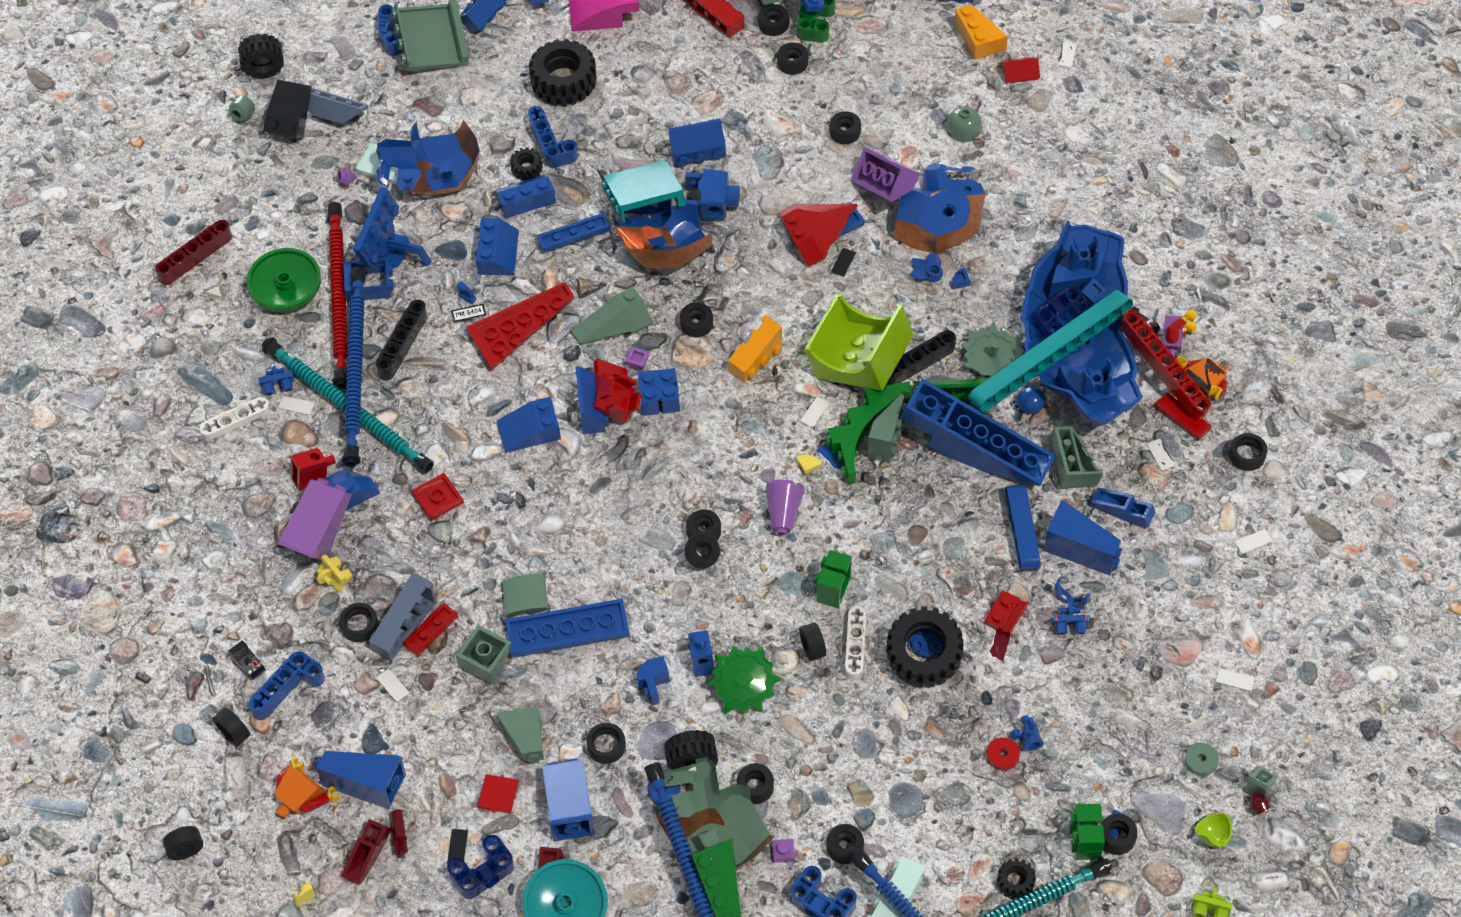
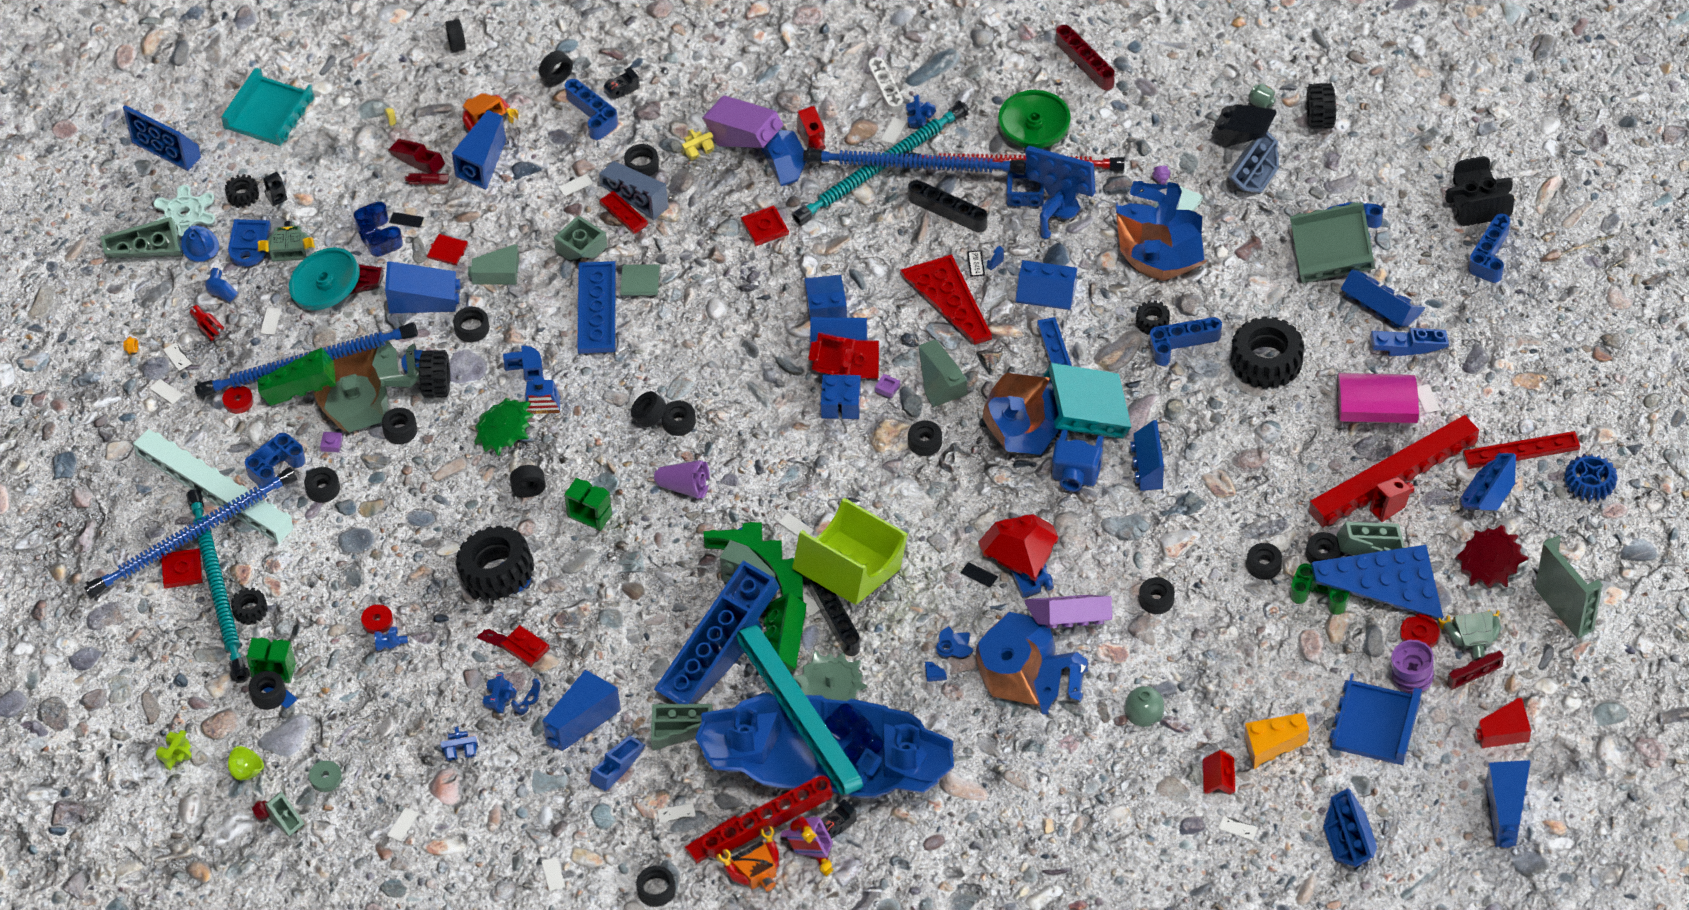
camera: 100 degrees right, 5 degrees down
(525, 196) = (1112, 312): blue slope -> none
(757, 351) = (872, 479): light orange wedge -> none
(808, 463) = (733, 510): light yellow tile -> none
(858, 642) = (523, 524): white beam -> none
(1022, 527) = (617, 671): blue beam -> none
(1136, 642) = (450, 746): none -> hips

